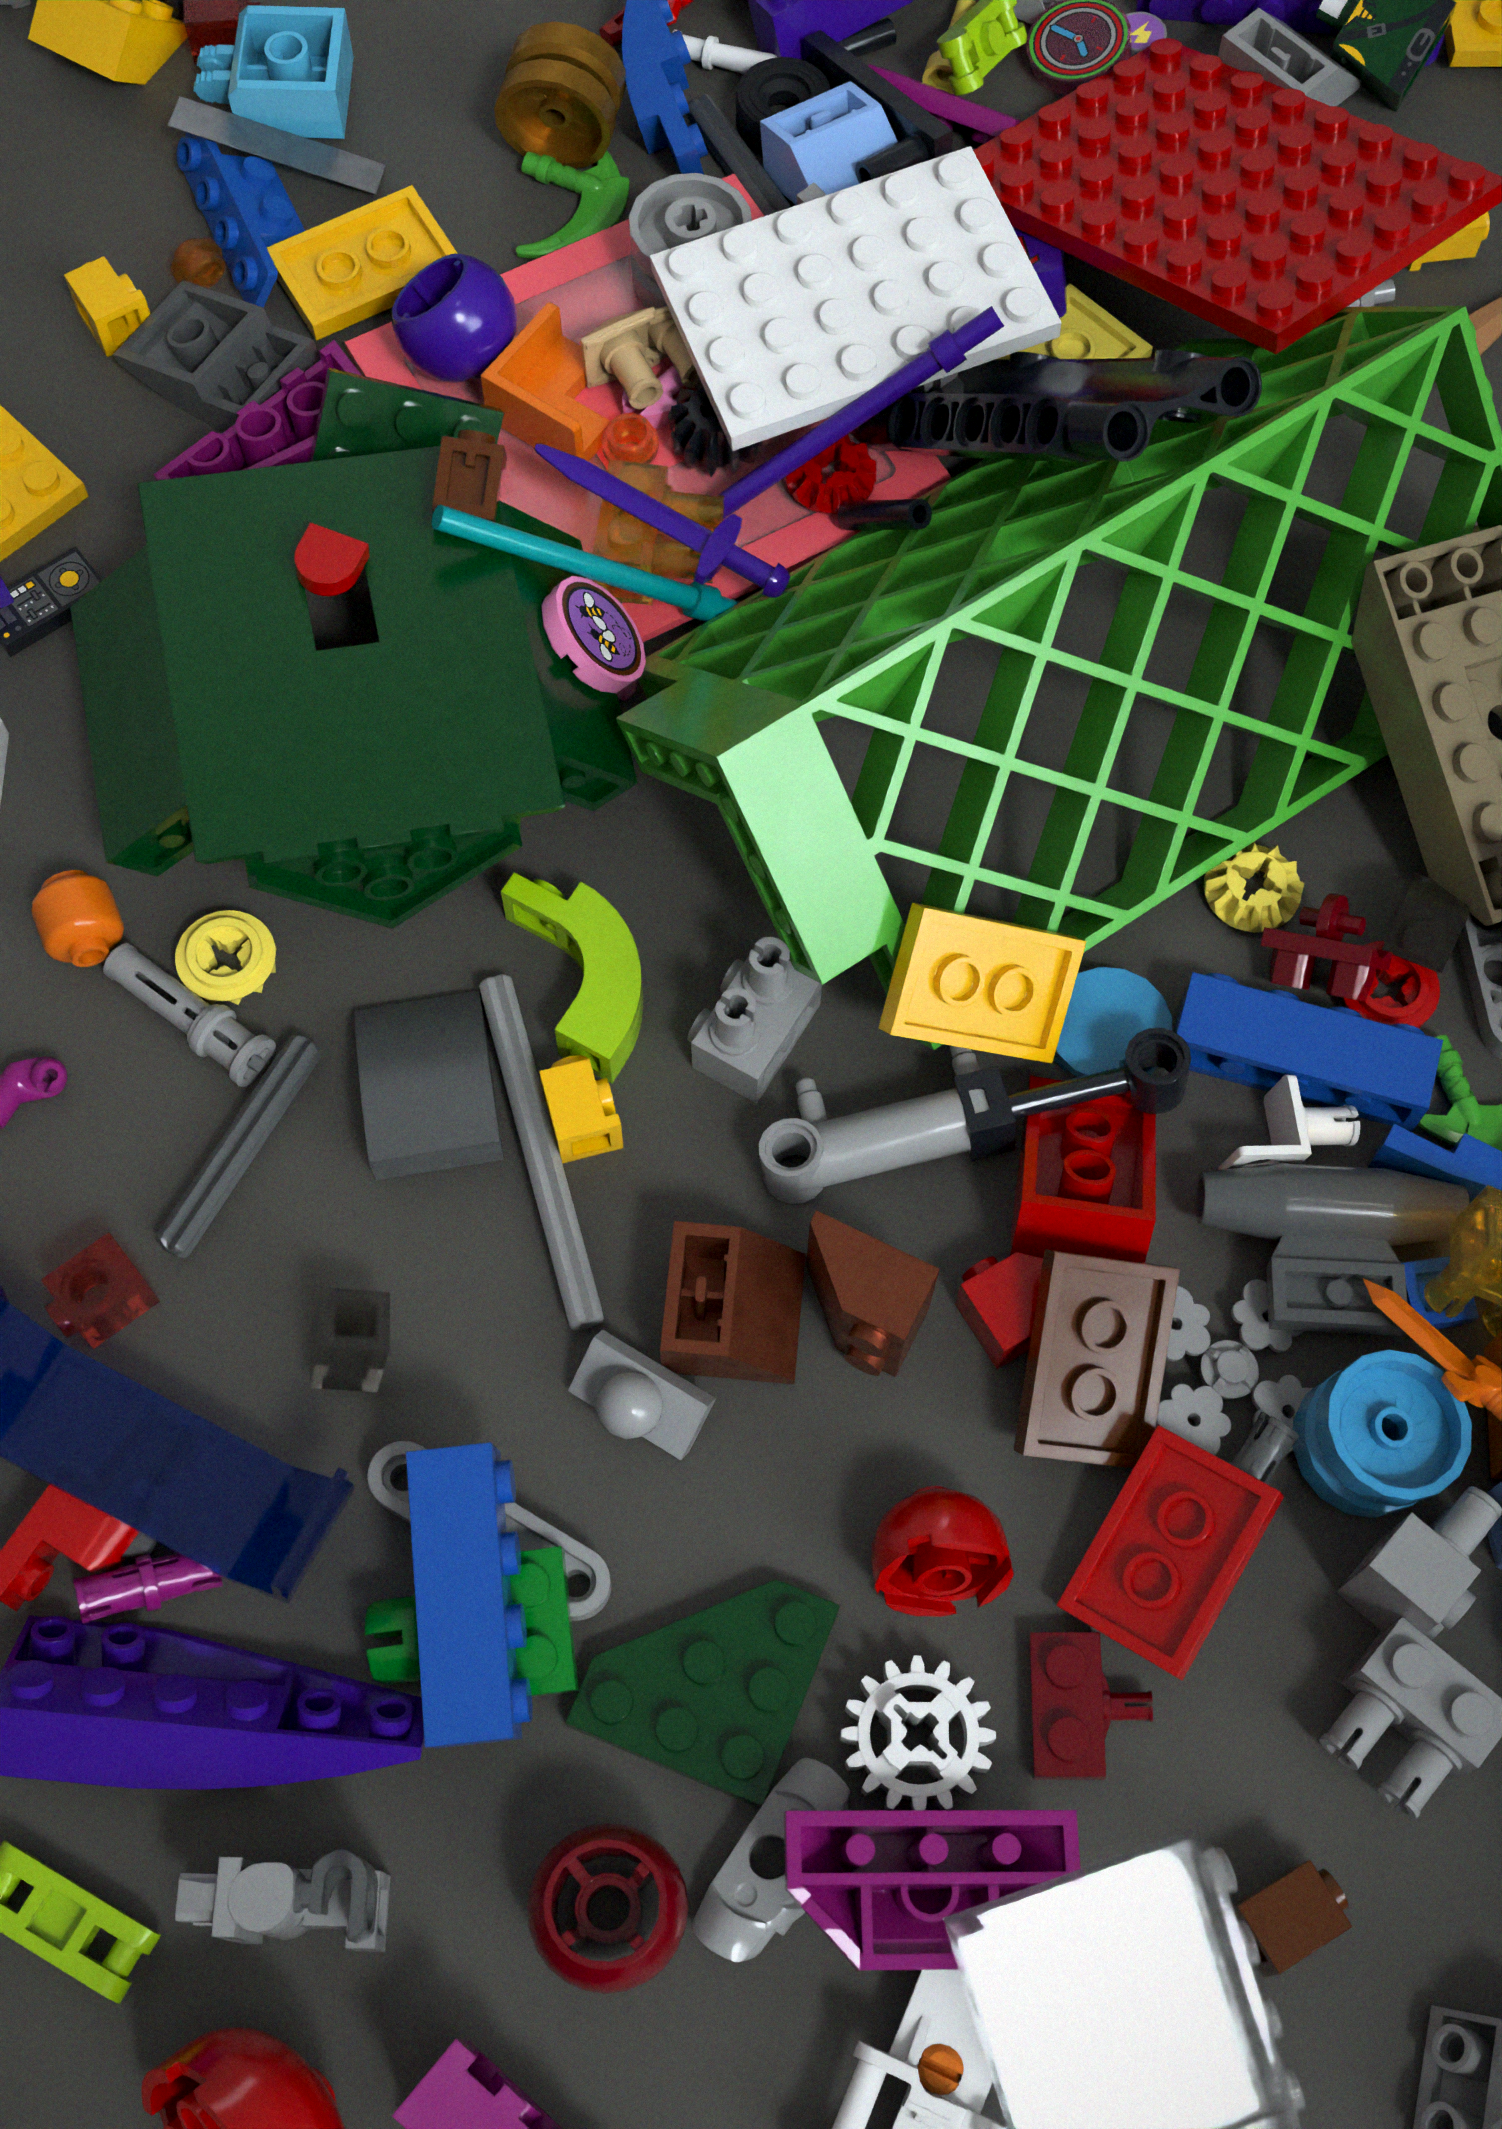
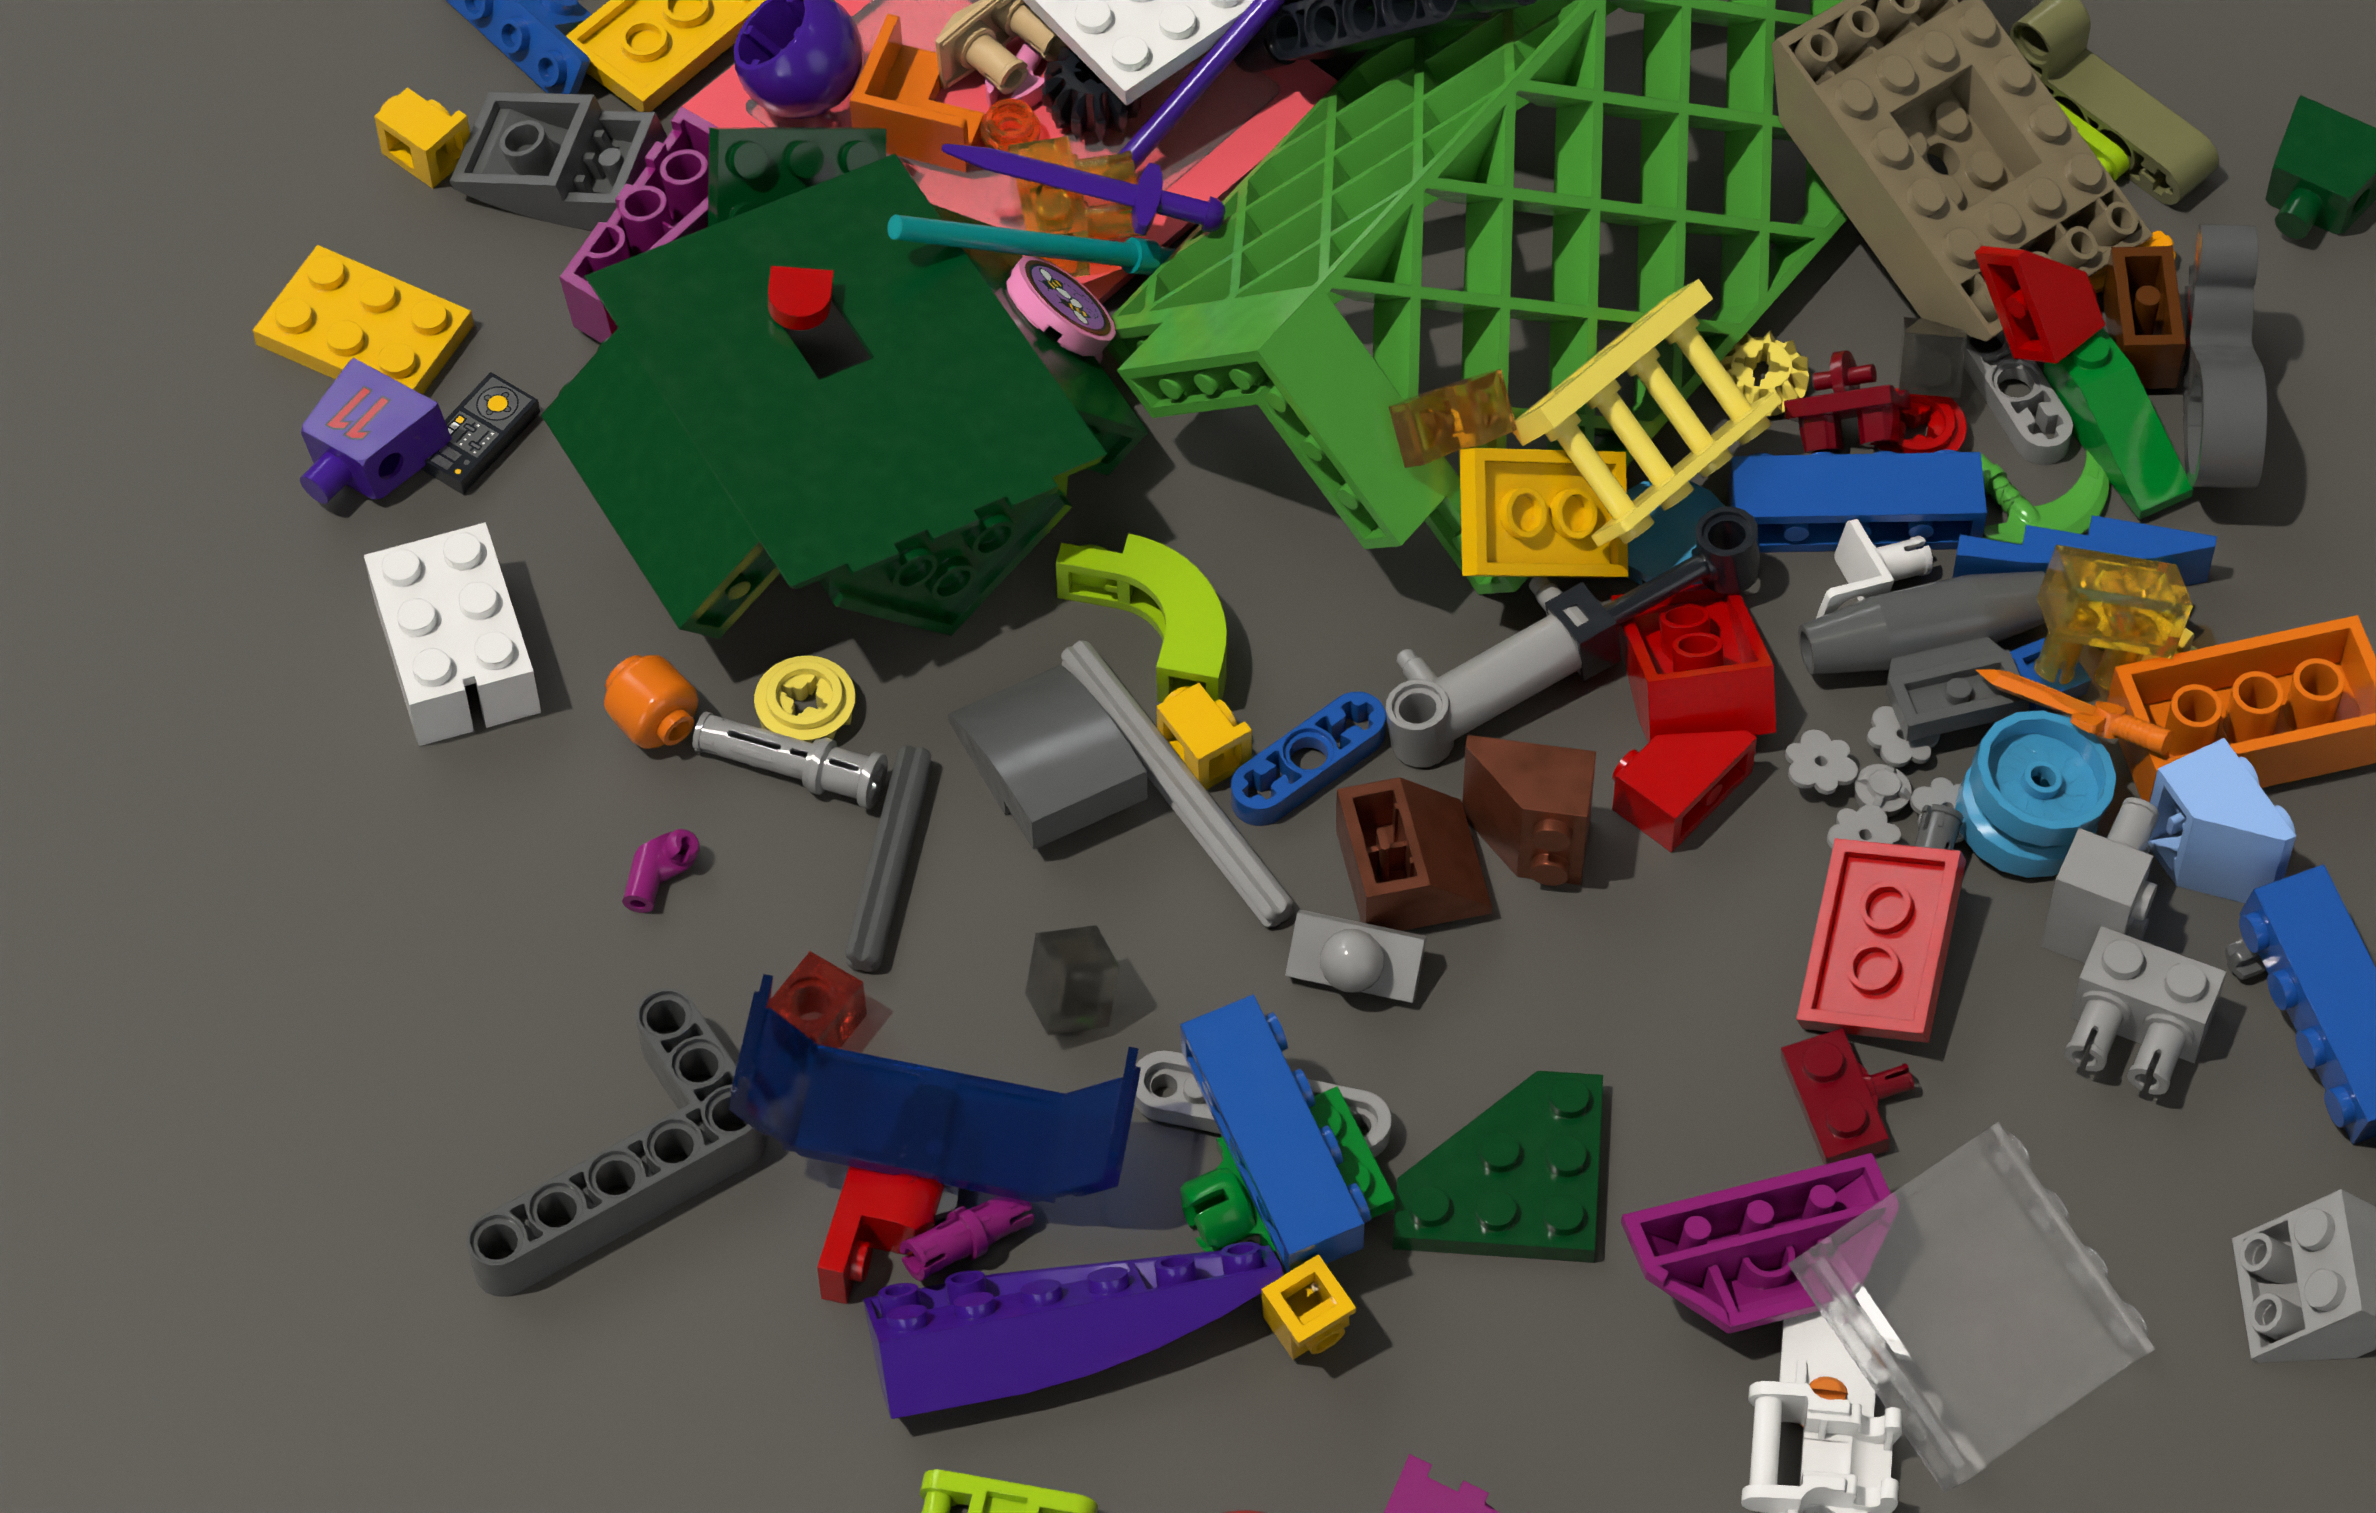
camera: 15 degrees left, 10 degrees down
(198, 262) = (496, 70): clear orange plate -> none
(287, 1901) = (1206, 1430): light grey hips -> none
(439, 1793) = (1307, 1308): none -> yellow brick
(470, 473) = (902, 182): reddish brown bracket -> none
(568, 1859) = (1486, 1322): dark red wheel -> none
(626, 1165) = (1300, 784): none -> blue beam
(741, 1907) = (1609, 1333): light grey piece -> none
(755, 1020) = (1338, 610): light grey brick -> none
(851, 483) = (1237, 121): red gear -> none
(885, 514) = (1292, 127): black piece -> none
(912, 869) = (1452, 418): none -> clear orange slope
(939, 1551) = (1679, 1002): red cylinder -> none
(942, 1760) = (1706, 1128): white gear -> none
(1074, 871) = (1597, 387): none -> light yellow fence
(1096, 1358) = (1759, 800): plate -> none
(1294, 1916) = (2095, 1190): reddish brown brick -> none

